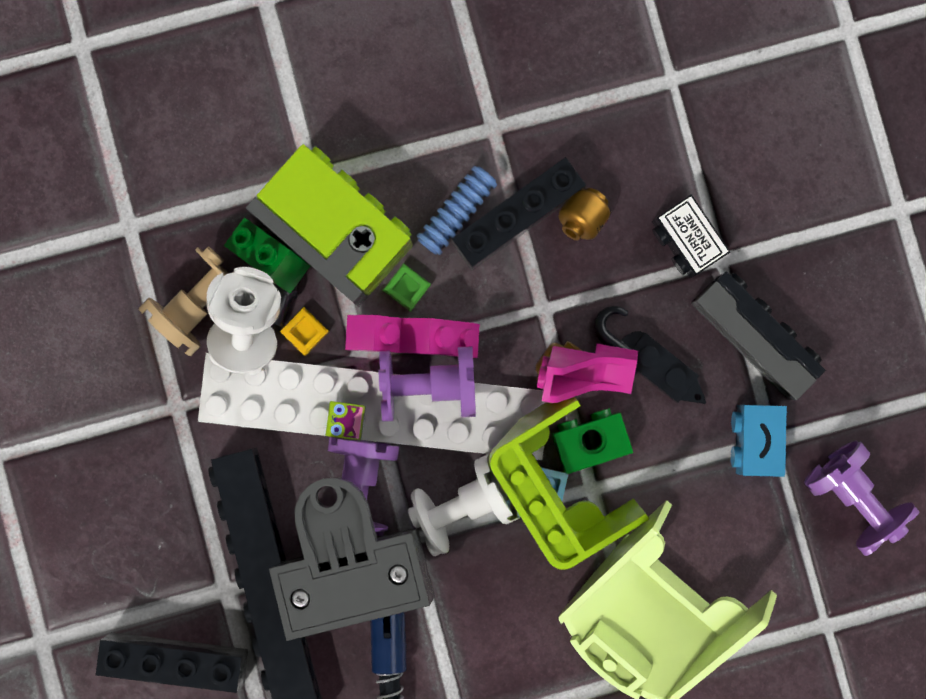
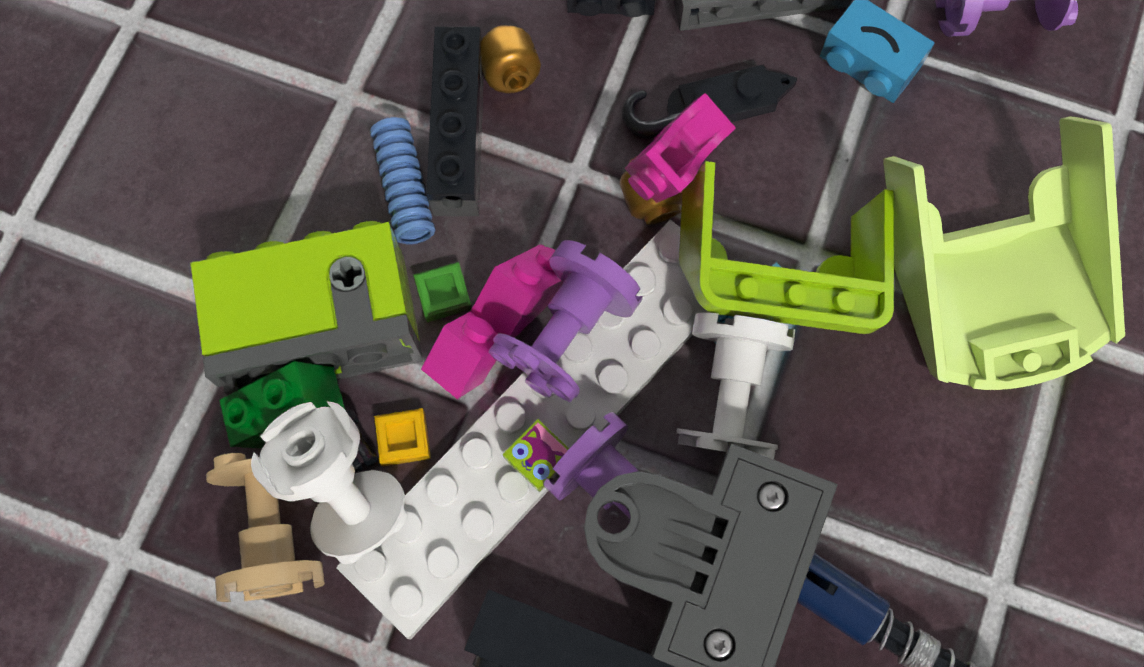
camera: 50 degrees left, 15 degrees down
(612, 445) = (772, 190): green brick -> none

